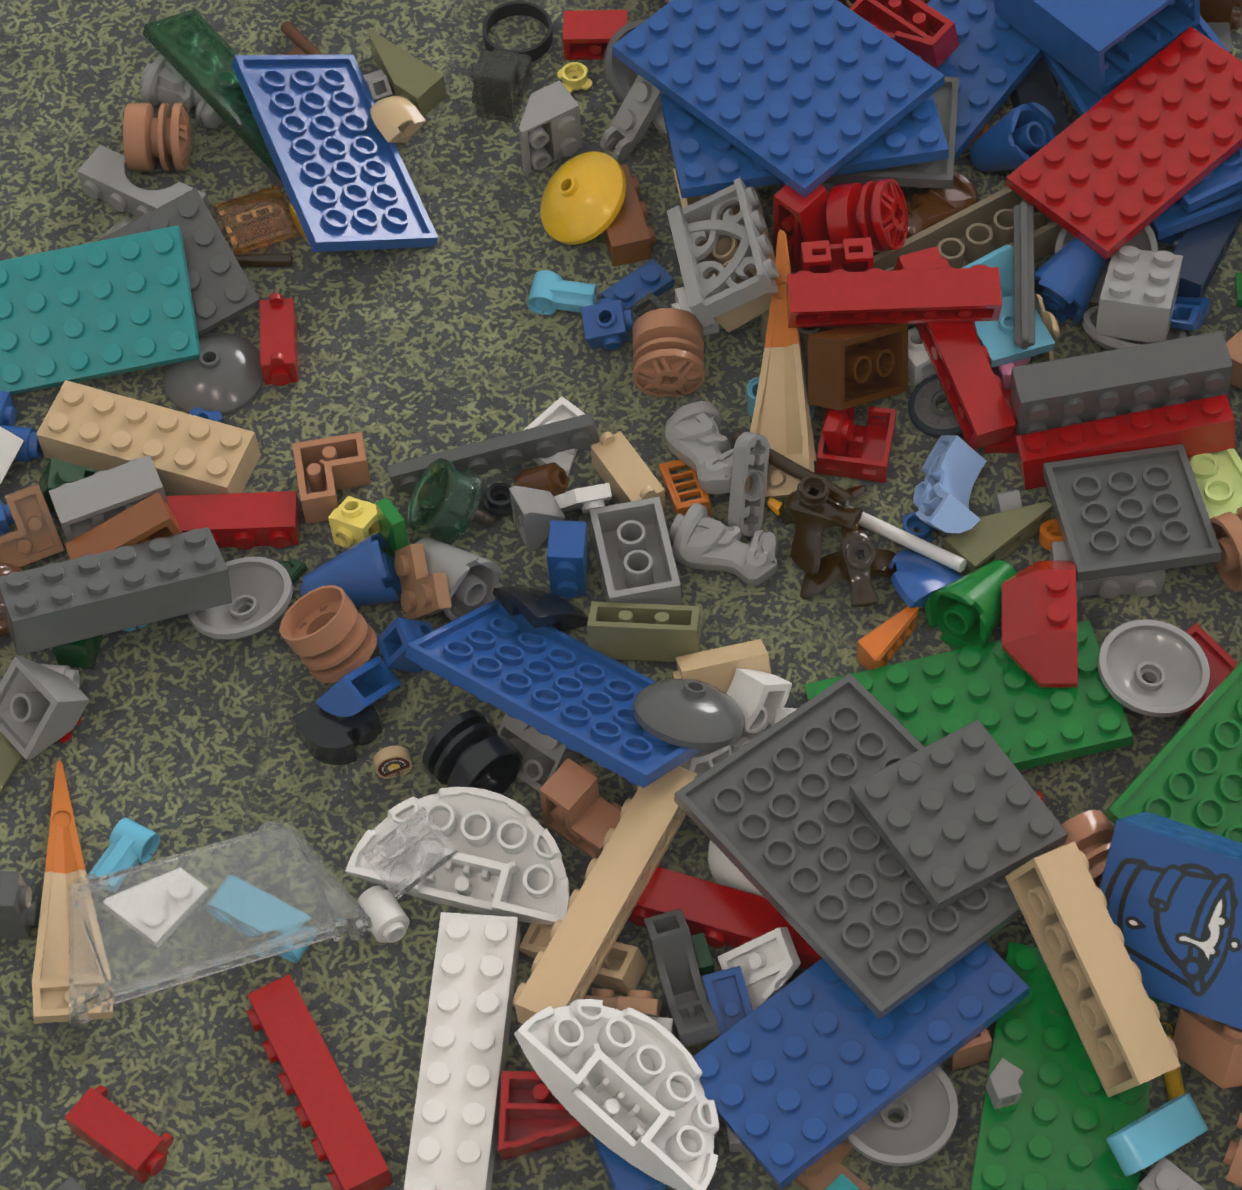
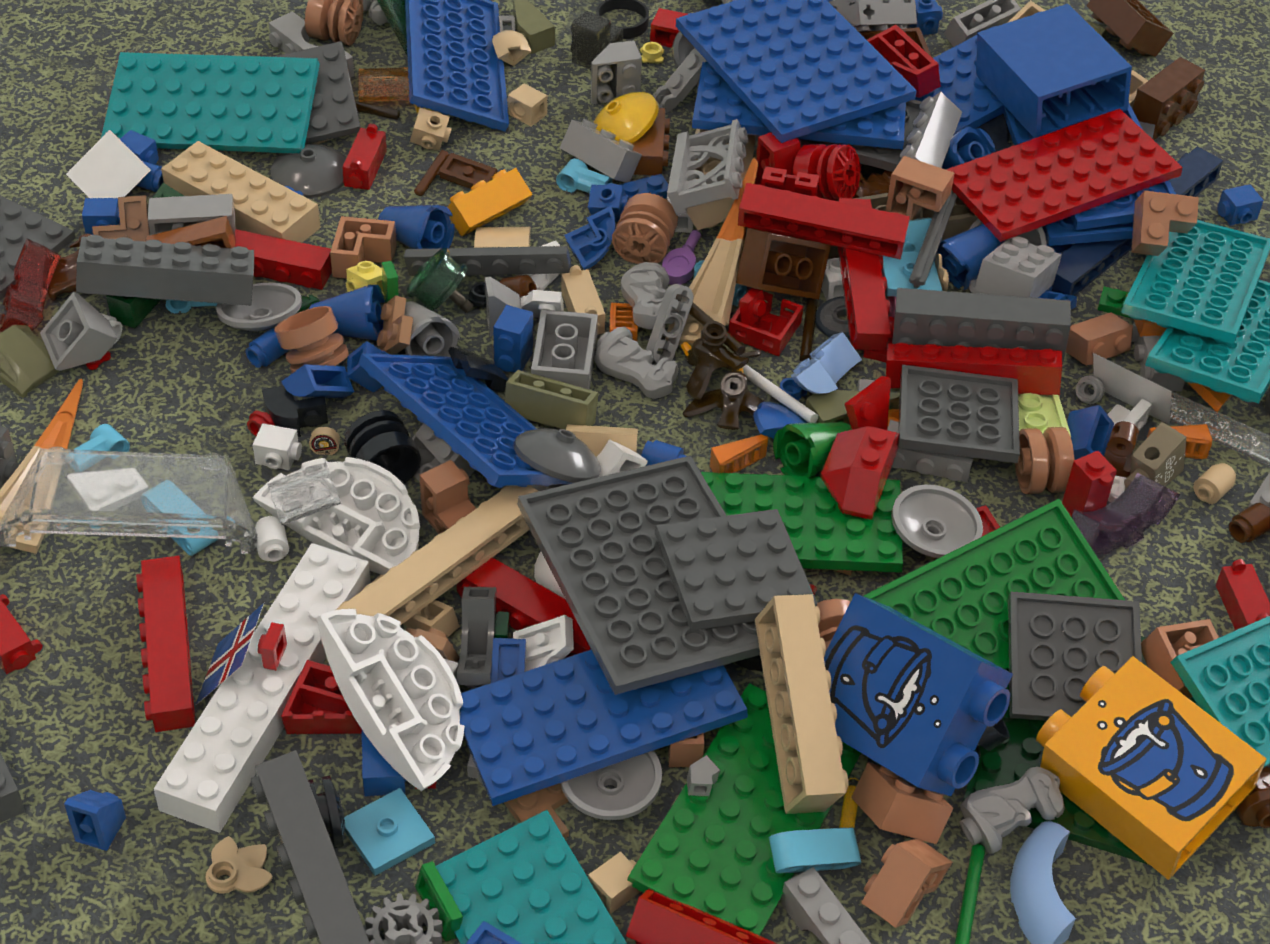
camera: 10 degrees right, 10 degrees down
(268, 653) = (265, 349): none -> blue brick
(307, 761) = (256, 420): none -> red plate
(339, 788) = (276, 447): none -> white brick
(345, 275) = (430, 129): none -> tan brick
(388, 426) = (421, 225): none -> blue cone
(406, 1089) = (229, 654): none -> sticker
(414, 327) = (456, 170): none -> reddish brown plate
(450, 201) = (527, 104): none -> tan brick
(458, 363) = (488, 200): none -> light orange brick
(458, 1069) = (272, 646): none -> red plate
(496, 413) = (502, 237): none -> tan slope
(570, 250) = (601, 150): none -> light grey brick
(606, 381) = (593, 240): none -> blue brick
(723, 380) = (681, 261): none -> medium lavender piece
(803, 666) = (659, 452): none -> blue brick
(908, 436) = (808, 329): none -> dark brown bar
(975, 134) = (932, 130): none -> light grey brick
(988, 212) = (917, 186): none -> nougat brick
(1026, 534) = (870, 405): none -> red wing

